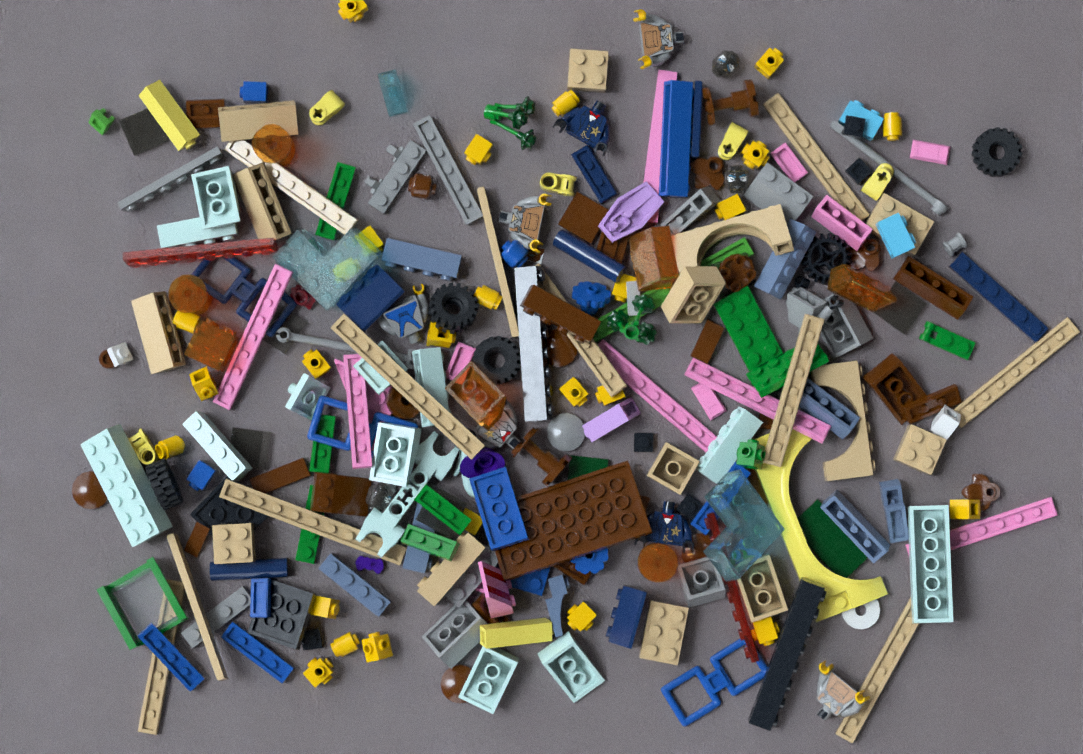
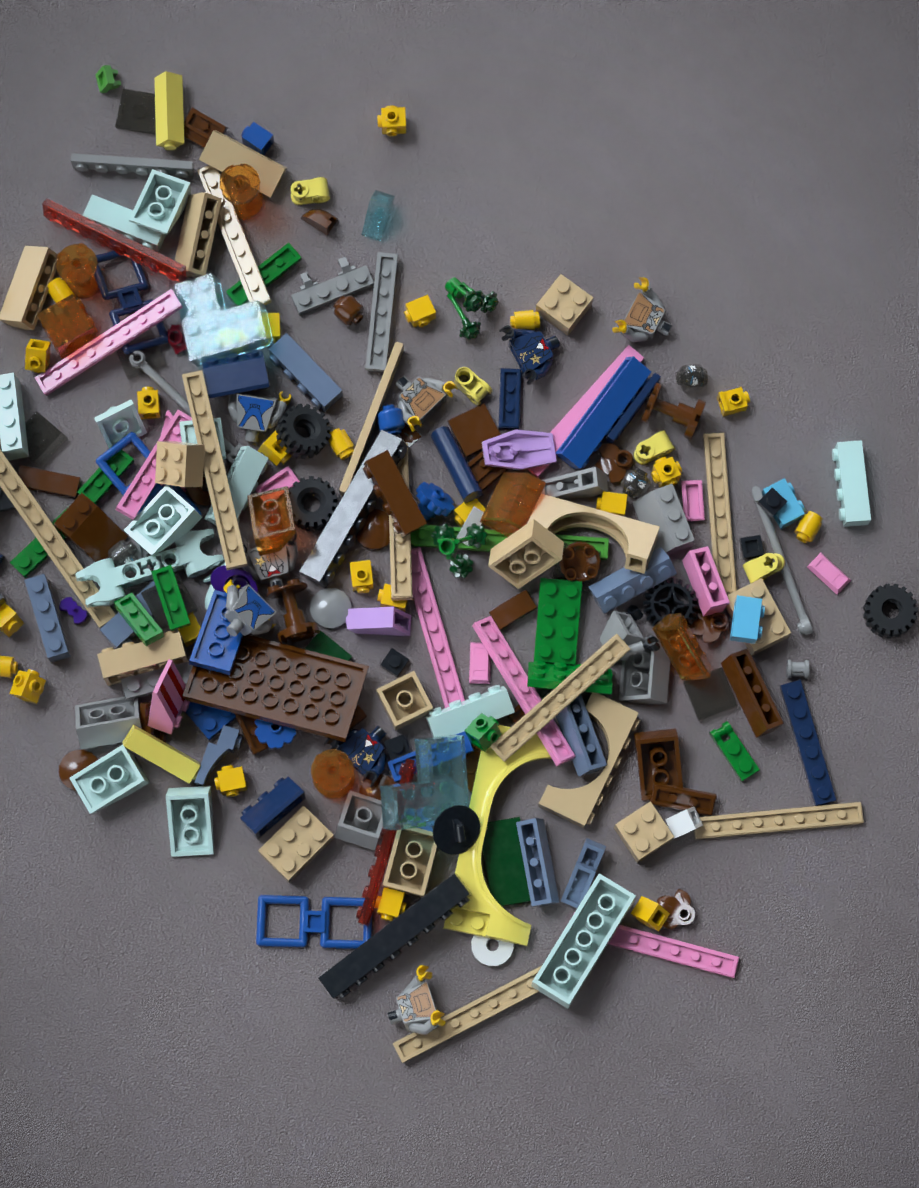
camera: 30 degrees right, 10 degrees down
(348, 126) = (320, 220): none -> reddish brown brick
(378, 400) = (179, 464): none -> tan brick
(507, 481) = (247, 611): none -> light grey torso
(780, 544) = (456, 829): none -> black shield
(903, 68) = (852, 483): none -> light aqua brick

